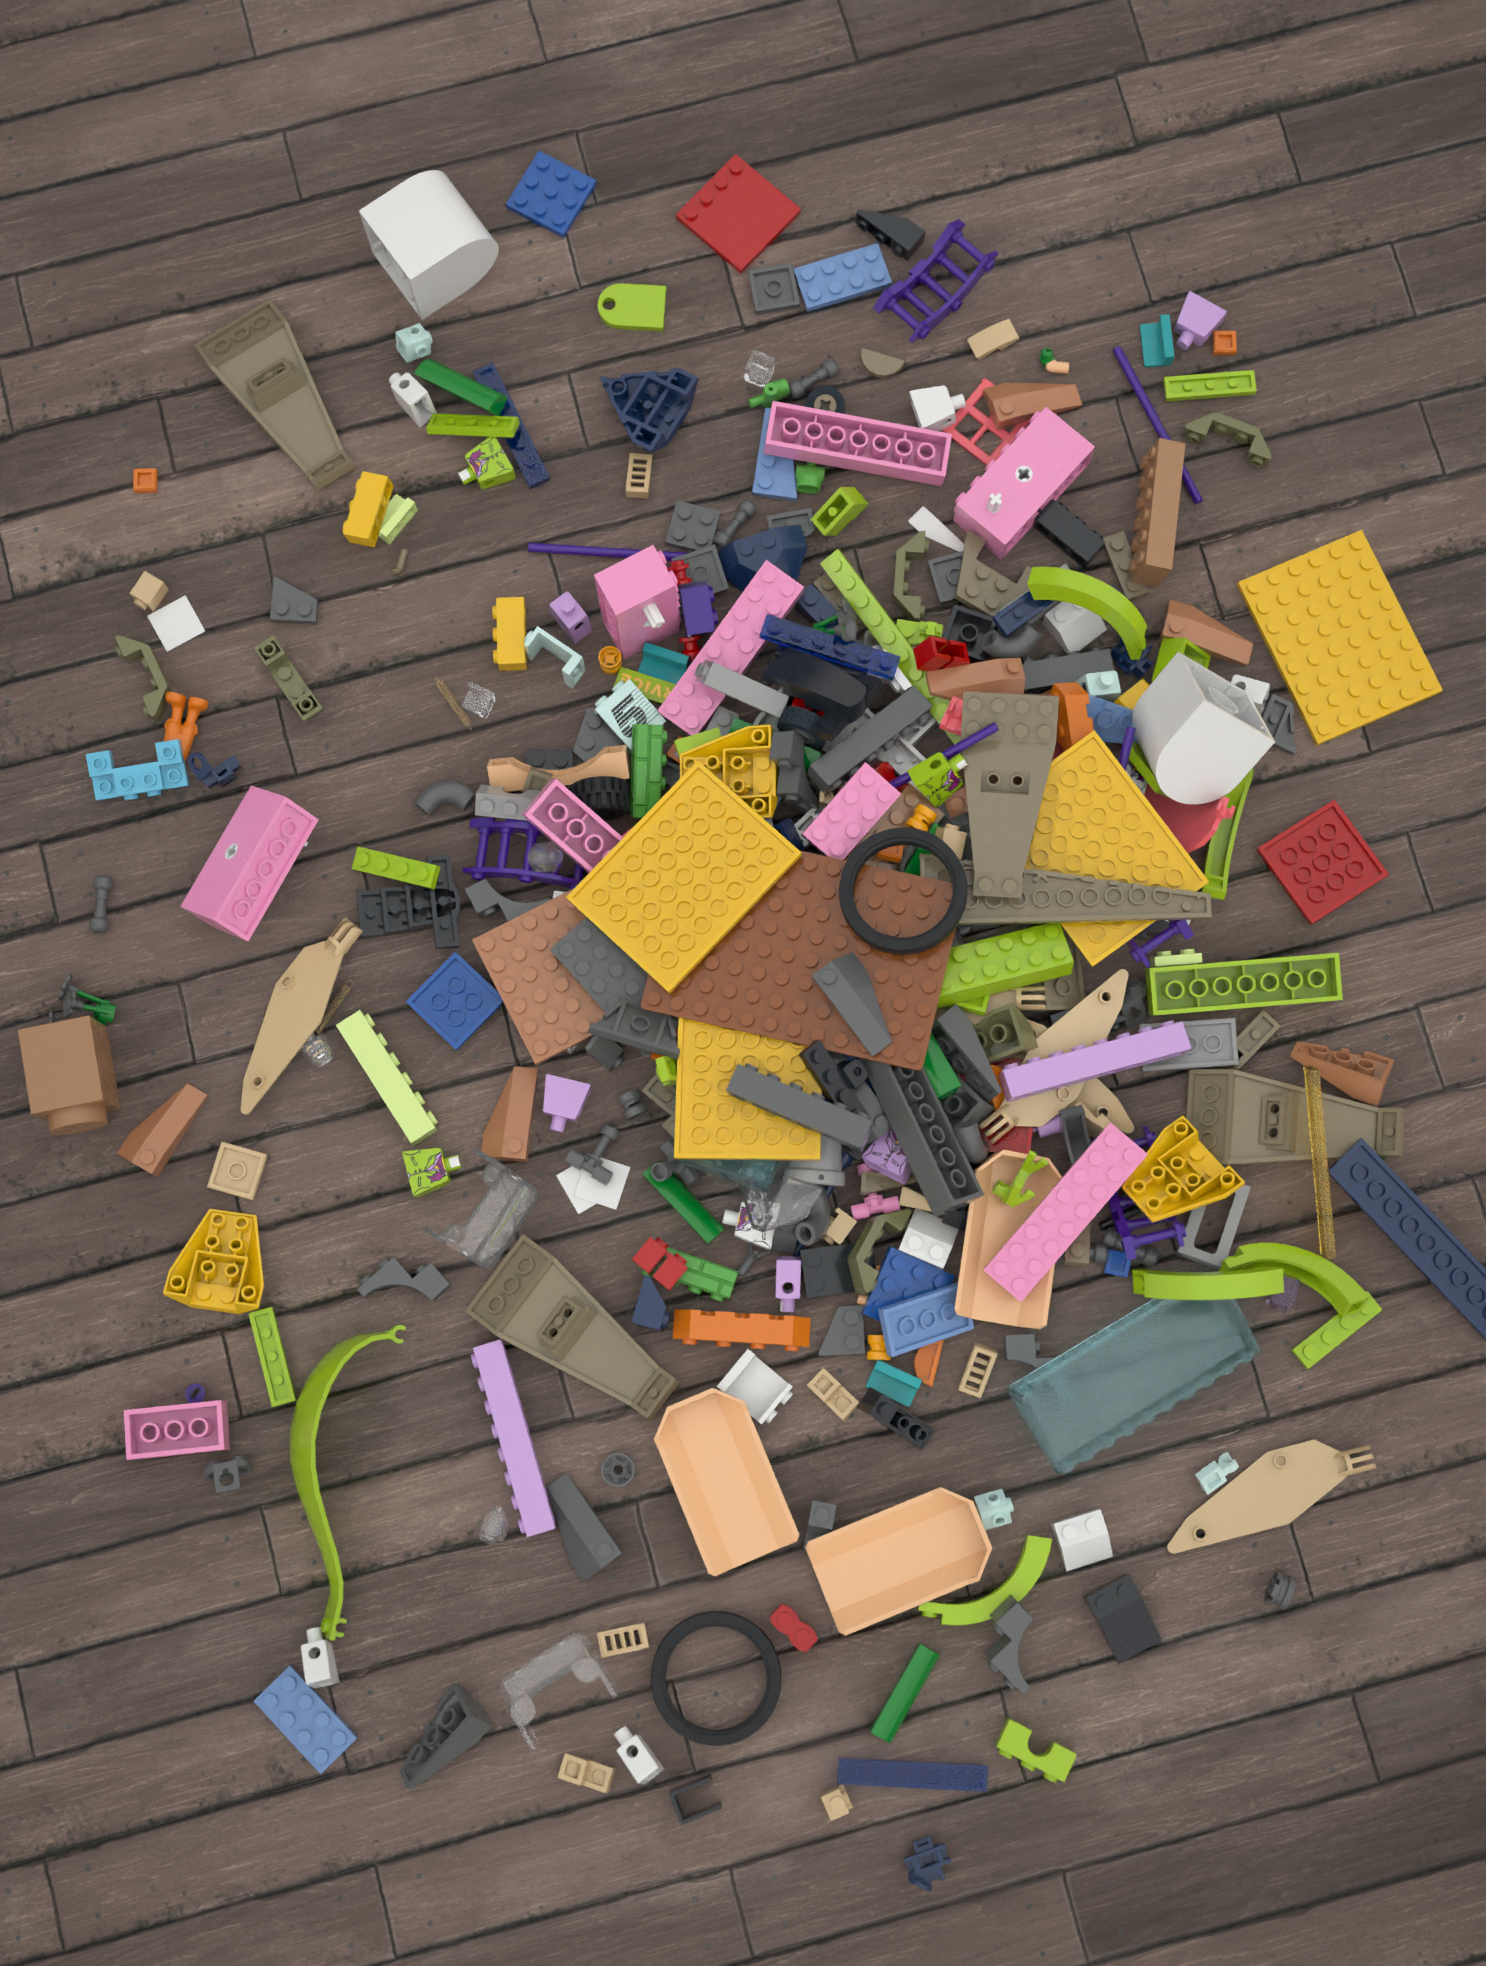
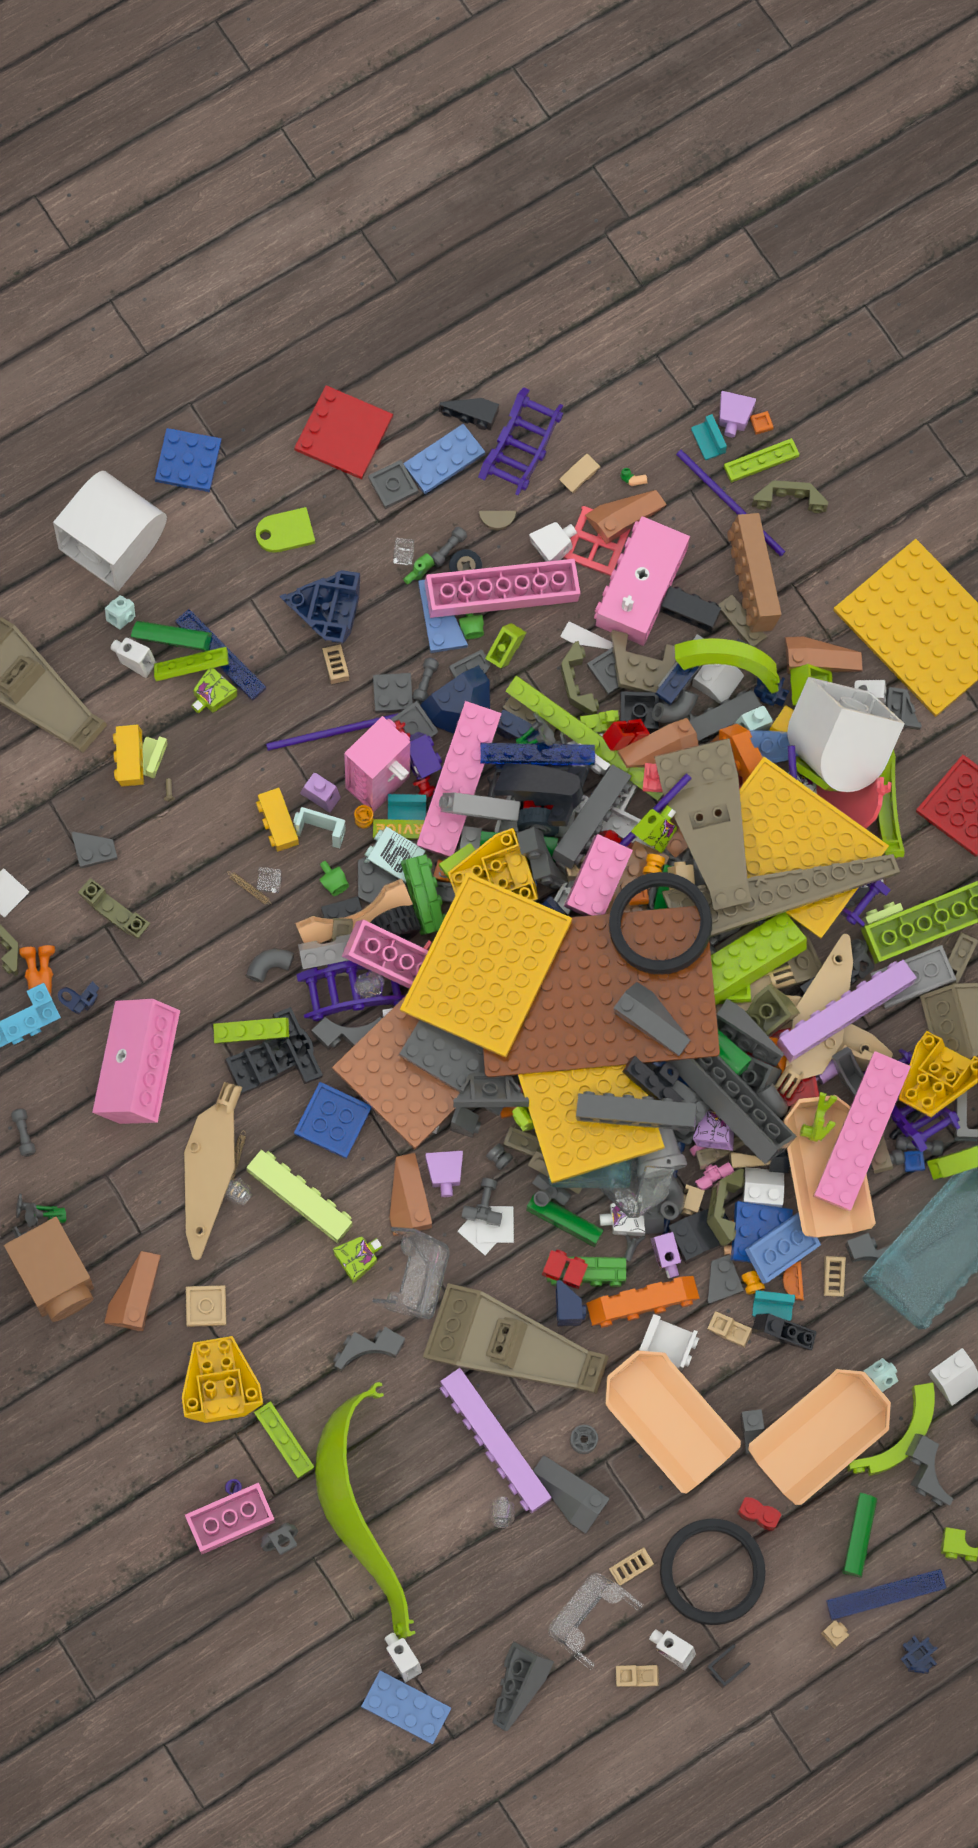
camera: 25 degrees left, 5 degrees down
(552, 722) = (334, 879): none -> bright green piece

